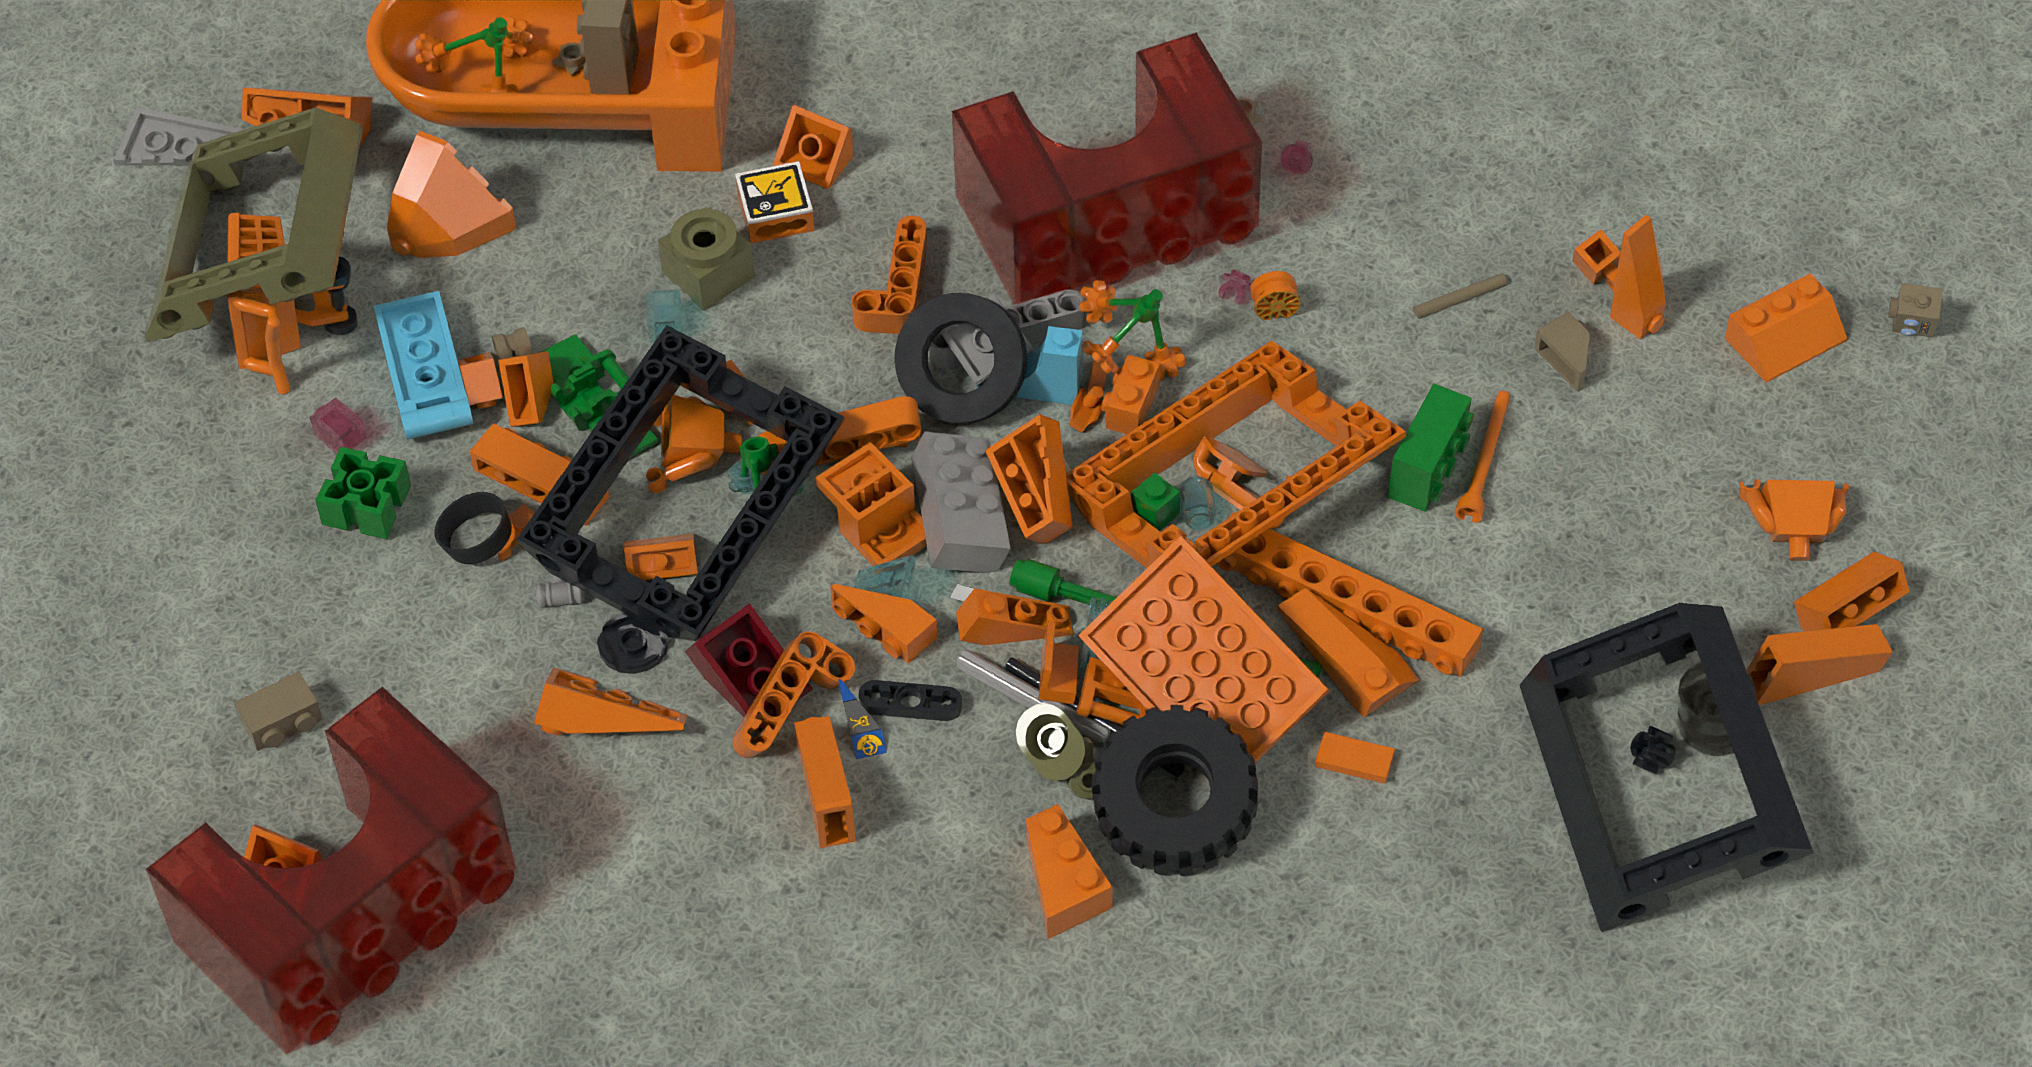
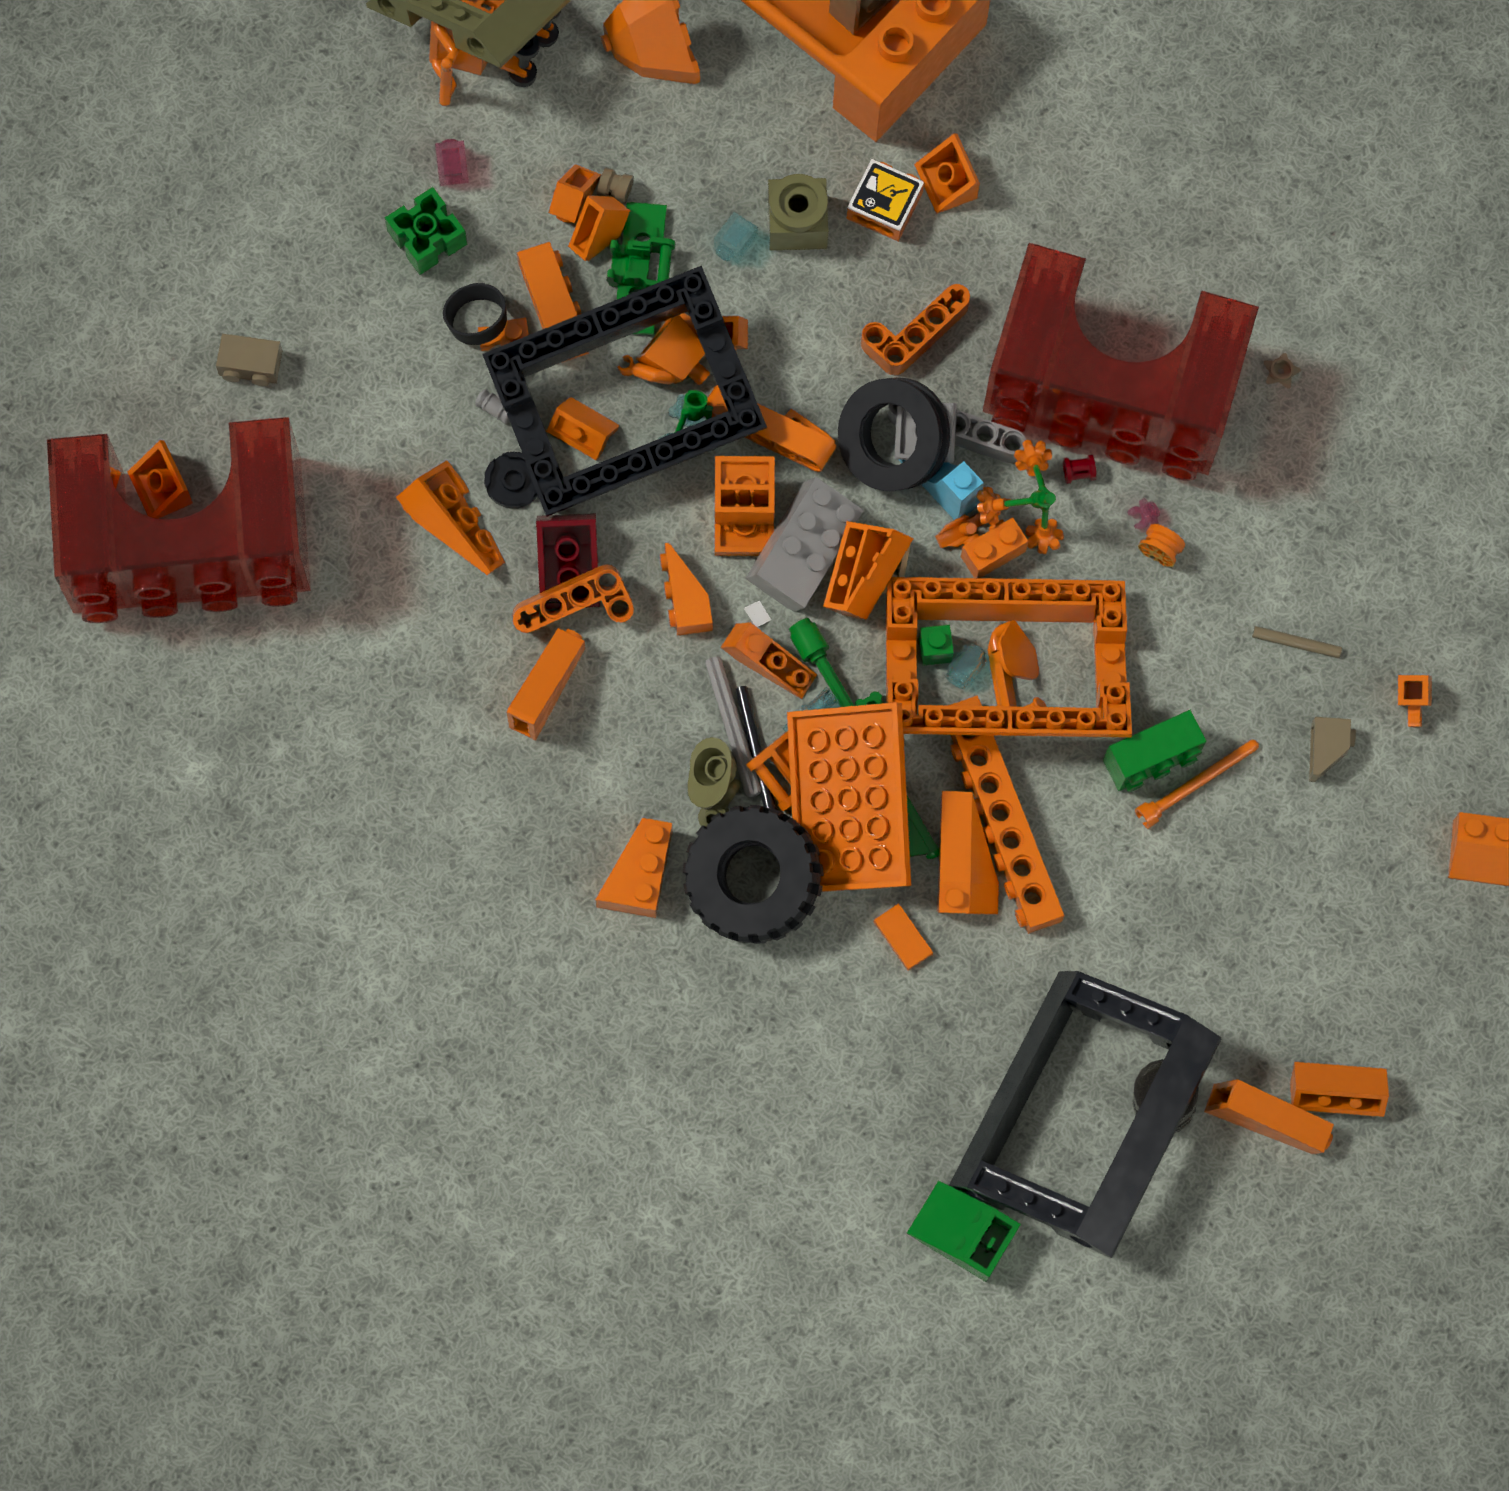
camera: 35 degrees right, 20 degrees up
(423, 365) = (547, 145): medium azure hinge -> none
(864, 731) = (604, 665): sticker -> none
(889, 578) = (707, 566): clear light blue slope -> none
(901, 690) = (643, 644): black beam -> none
(1058, 669) = (763, 721): orange panel -> none
(1146, 285) = (1079, 469): none -> dark red bush
(1297, 157) = (1282, 442): clear pink plate -> none
(1639, 282) = (1417, 740): orange wedge -> none
(1653, 750) = (1098, 1091): black gear -> none
(1655, 950) = (963, 1230): none -> green slope
(1796, 511) = (1365, 997): orange torso -> none

